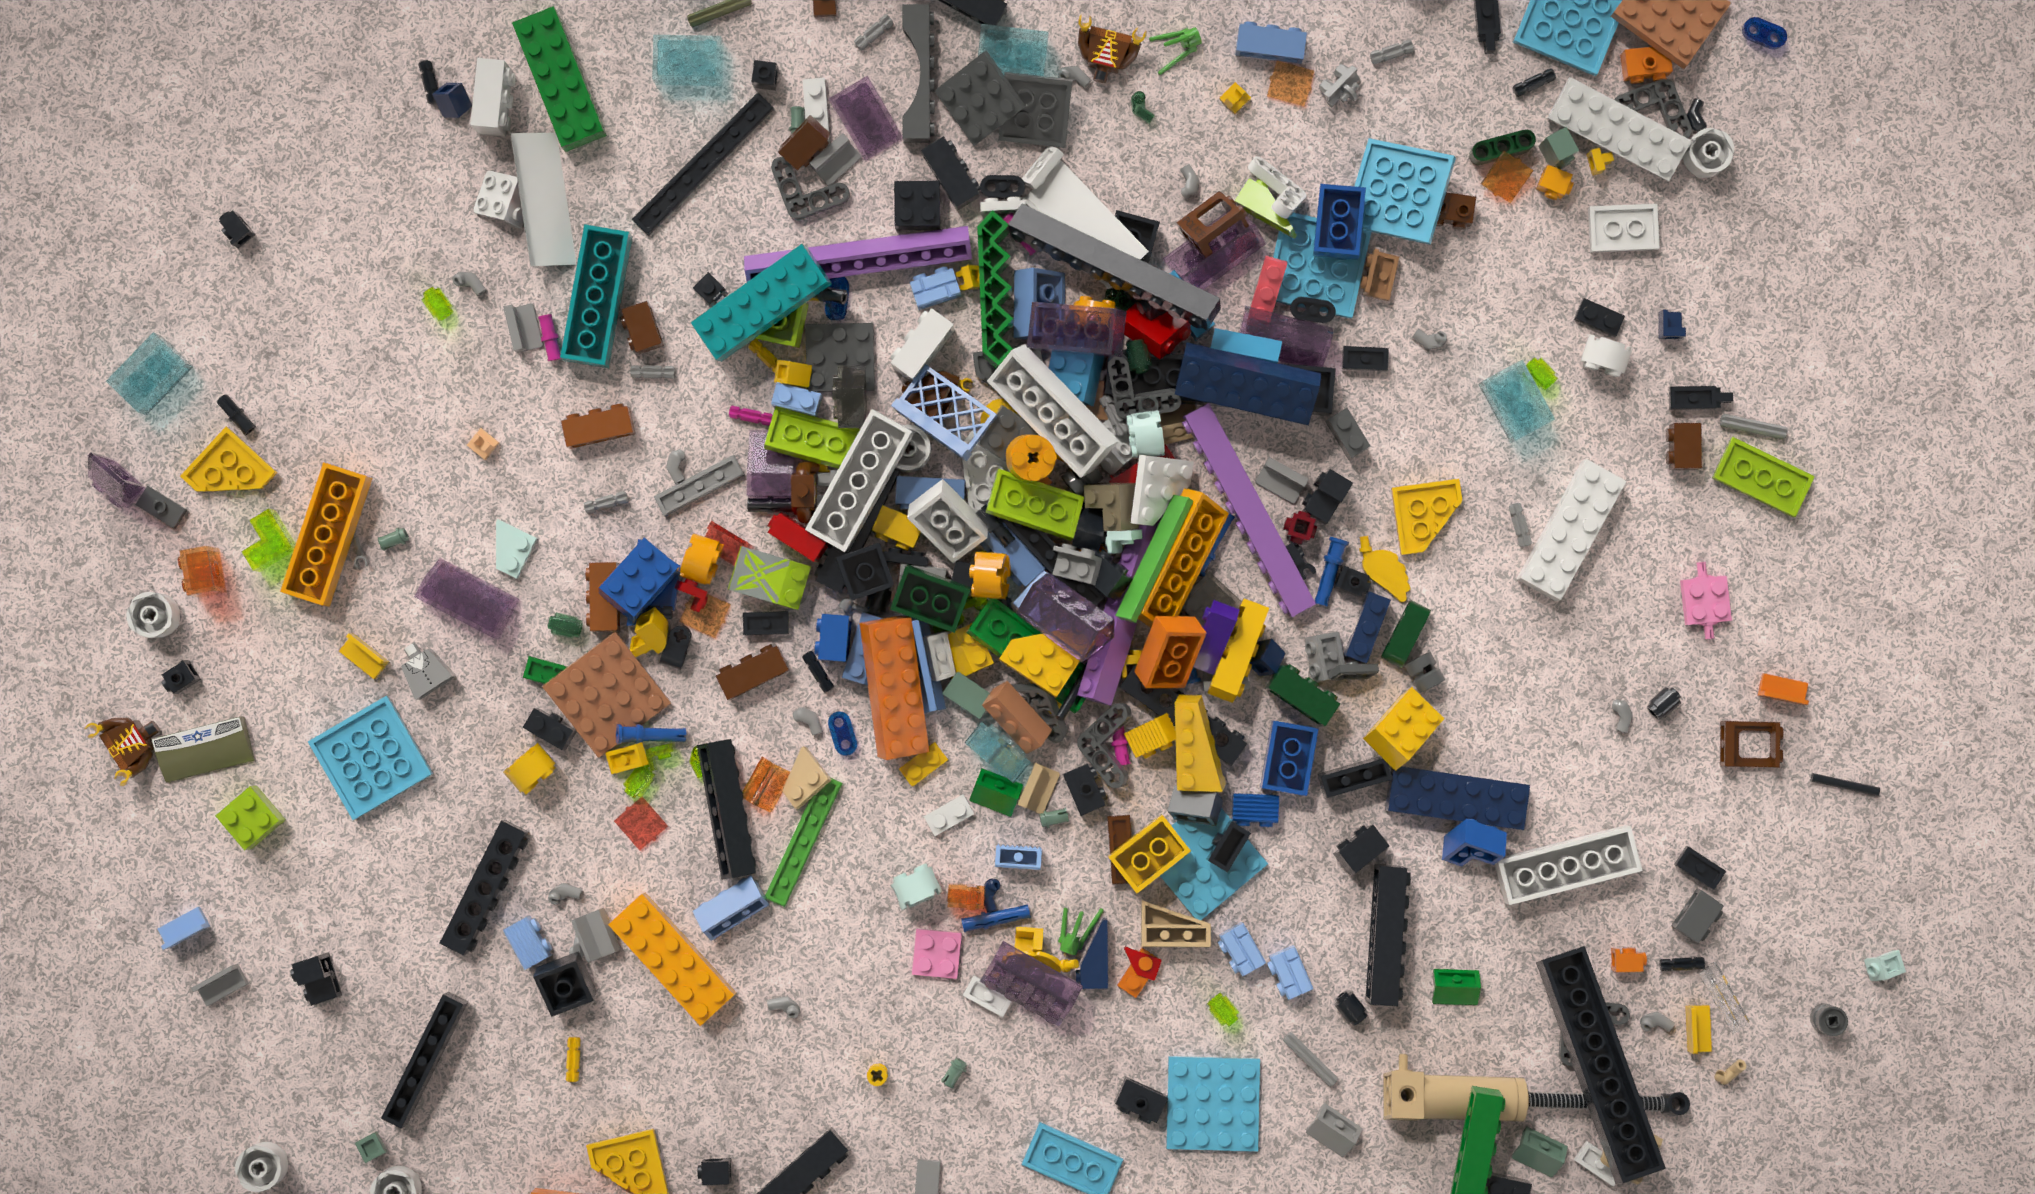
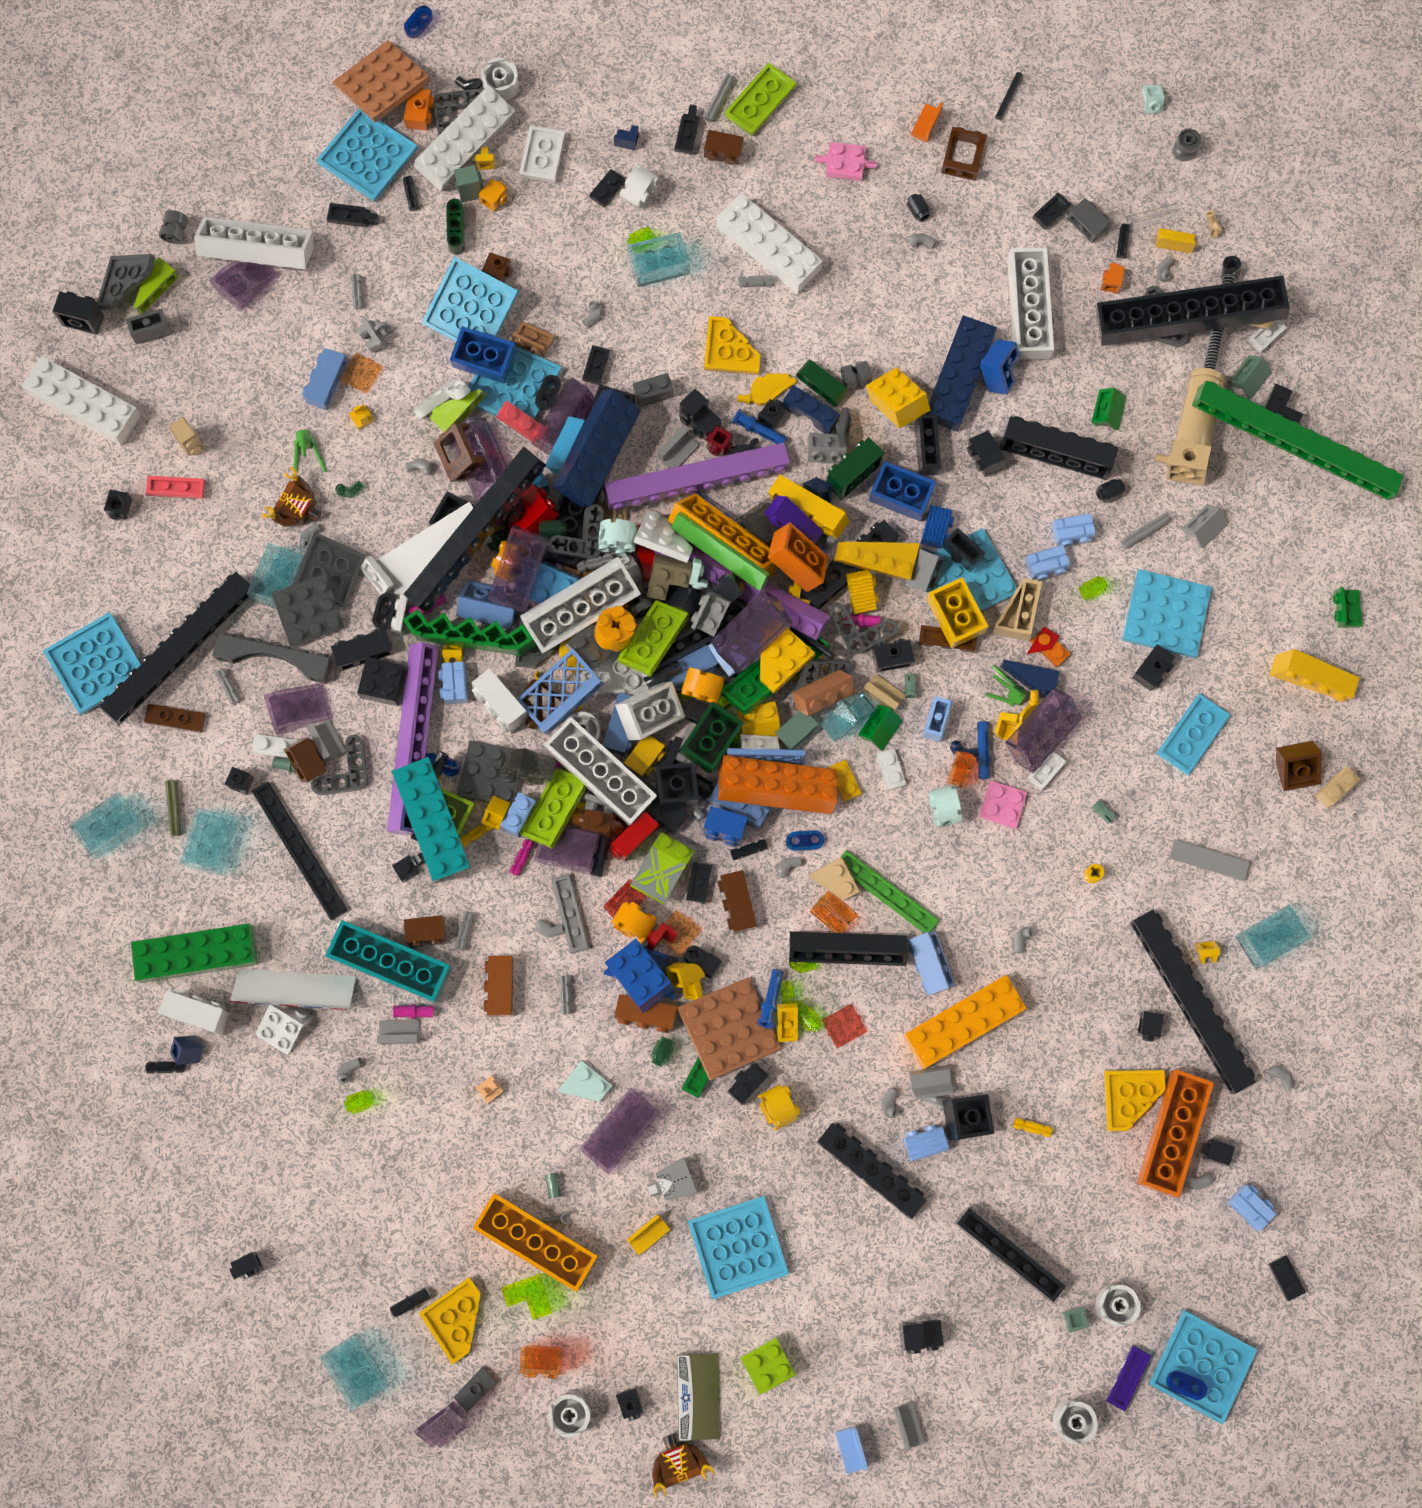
camera: 85 degrees left, 10 degrees down
(1507, 177) = (479, 227): clear orange piece -> none

